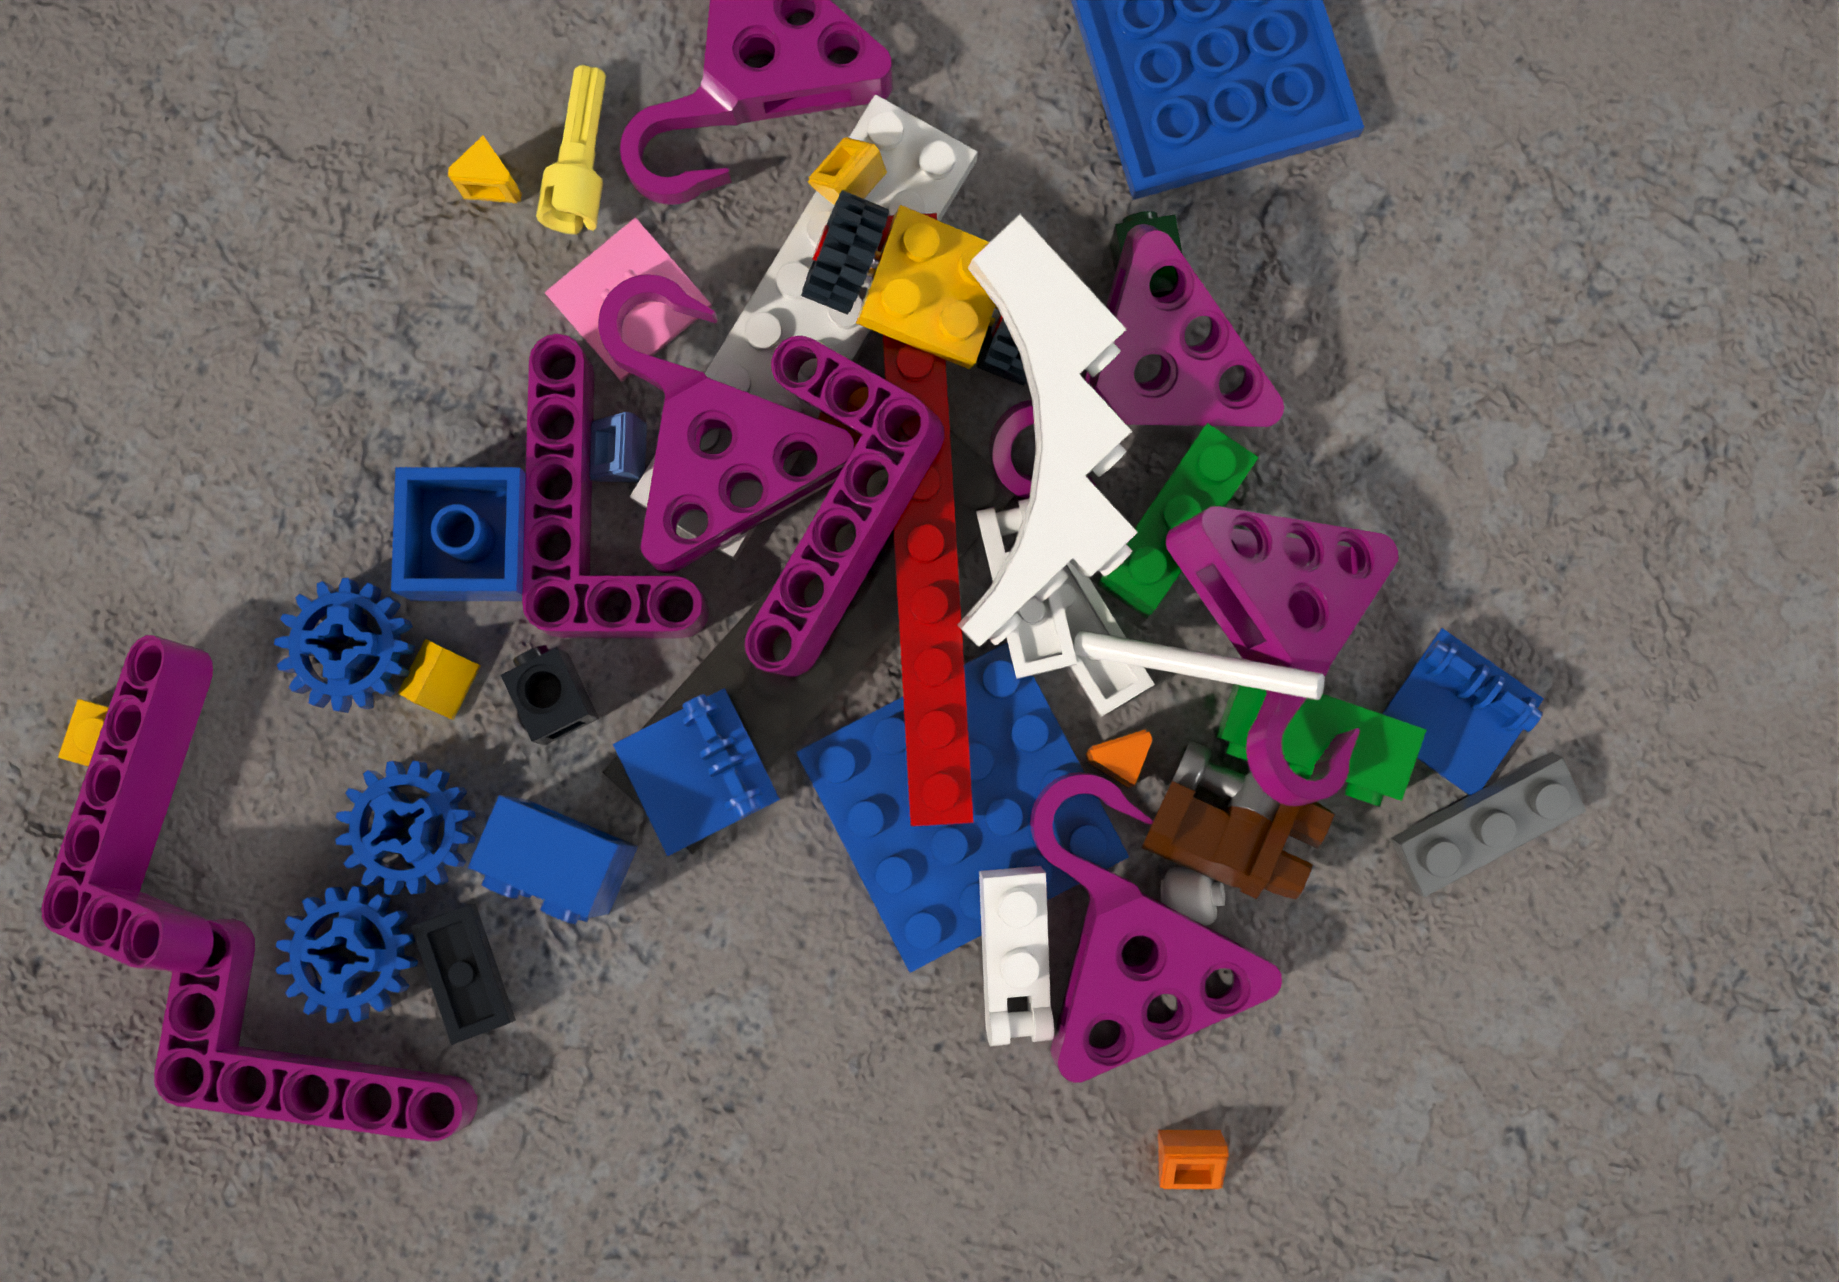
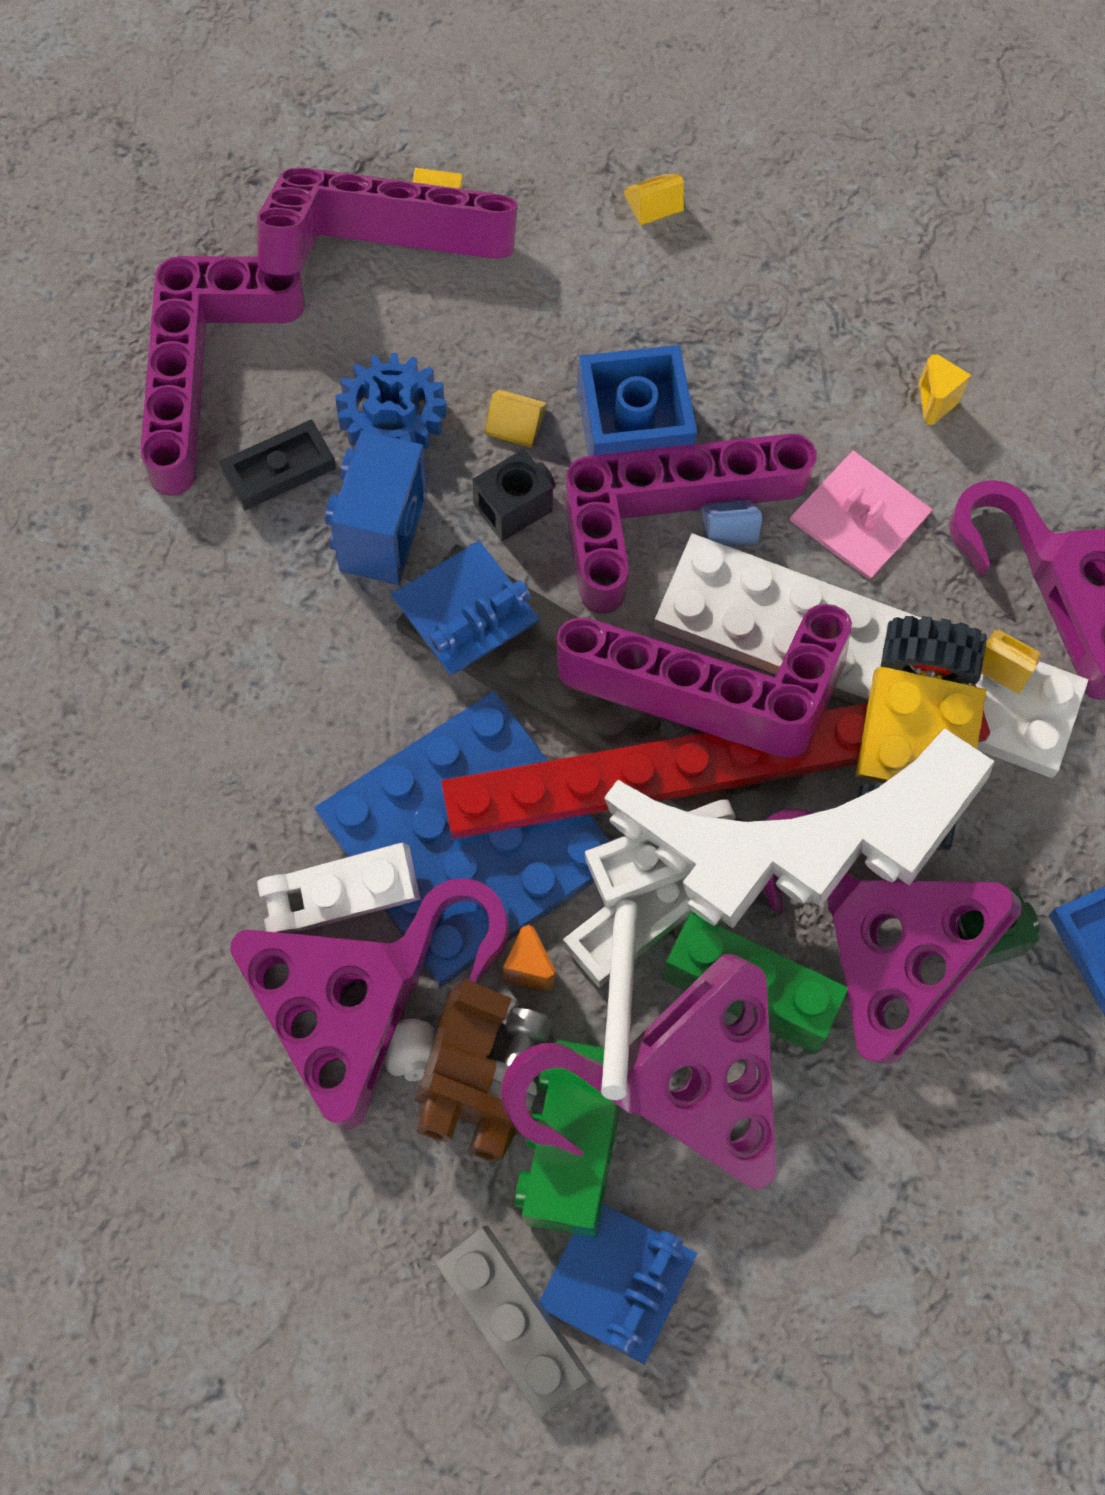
camera: 75 degrees right, 15 degrees down
(151, 462) = (656, 197): none -> yellow slope
(338, 976) = (304, 369): blue gear -> none
(343, 621) = (510, 354): blue gear -> none
(570, 186) = (945, 452): light yellow piece -> none
(693, 405) = (720, 556): magenta piece -> none
(1192, 1159) = (170, 1074): orange slope -> none

